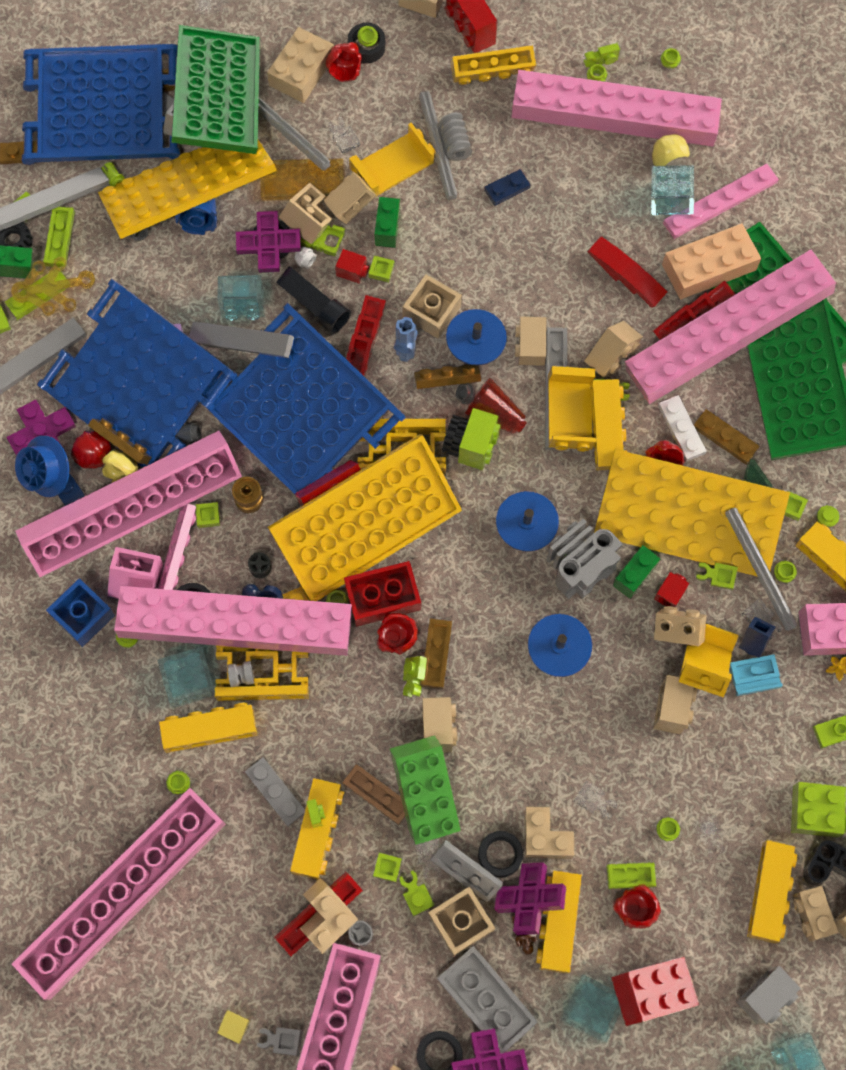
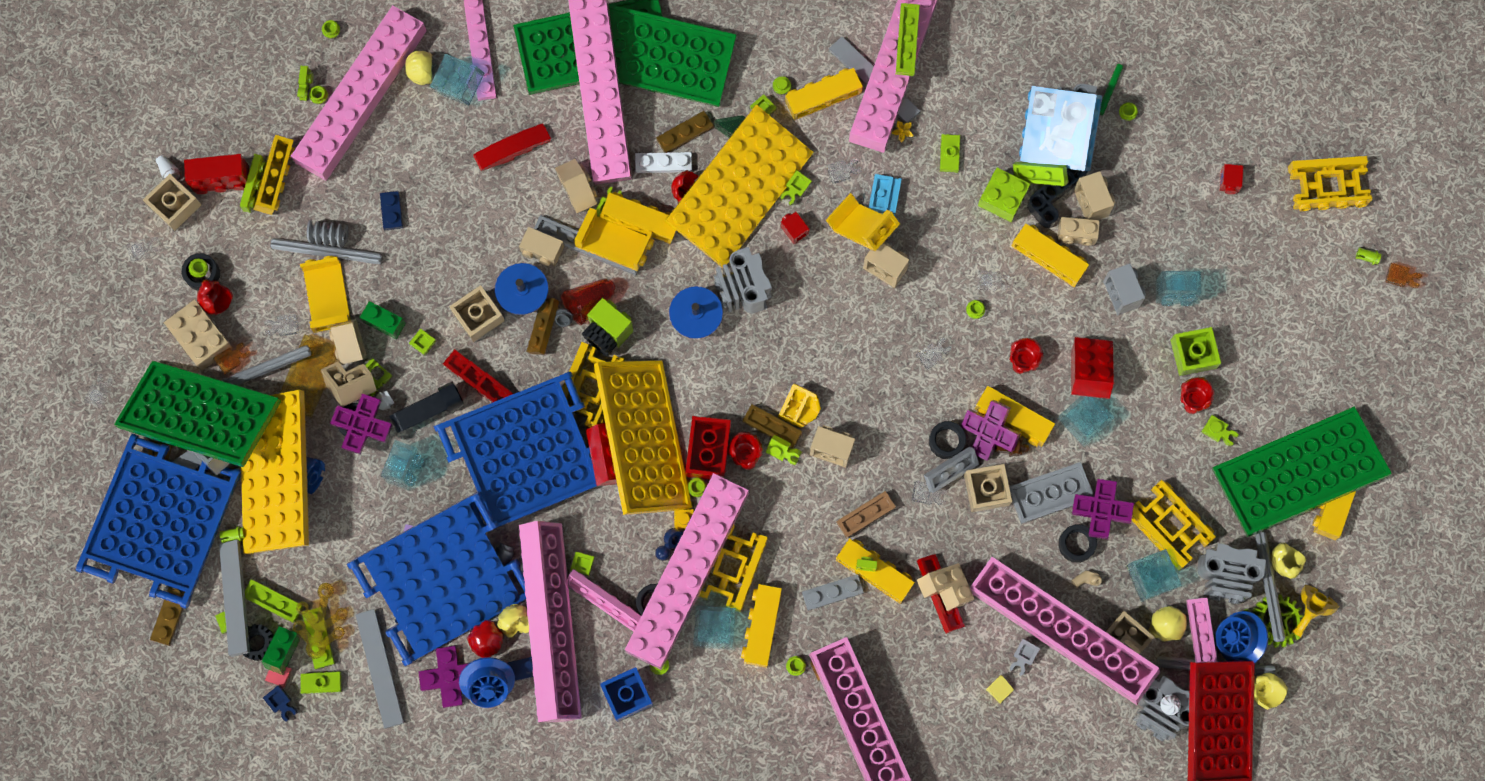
camera: 65 degrees left, 5 degrees up
(120, 440) = (490, 610): pearl gold plate -> none
(133, 570) = (610, 640): bright pink slope -> none
(240, 674) = (732, 582): light grey wheel -> none
(241, 339) = (445, 478): light grey tile -> none
(247, 495) = (580, 524): pearl gold wheel -> none
(259, 560) = (642, 534): pearl dark grey wheel -> none
(289, 102) = (229, 359): none -> clear orange plate
(351, 266) = (410, 364): red brick -> none
(360, 930) = (969, 566): light grey wheel -> none
(387, 867) = (925, 528): lime plate -> none
(405, 339) = (501, 345): medium blue piece -> none
(417, 896) = (955, 515): lime plate -> none
(425, 789) = (881, 474): bright green brick -> none
(471, 675) = (800, 406): none -> yellow slope
(477, 47) = (253, 183): none -> lime plate
(541, 841) = (947, 406): tan brick -> none
(560, 645) = (806, 328): blue piece -> none
(630, 875) = (999, 351): lime plate -> none
(636, 572) = (769, 247): green brick -> none
(680, 626) = (827, 233): tan brick -> none
(694, 310) = (572, 110): red slope -> none
(711, 261) = (535, 78): light nougat brick -> none
(757, 637) = (857, 180): dark blue brick -> none
(761, 569) = (805, 153): light grey axle -> none
(785, 571) = (812, 137): lime plate -> none

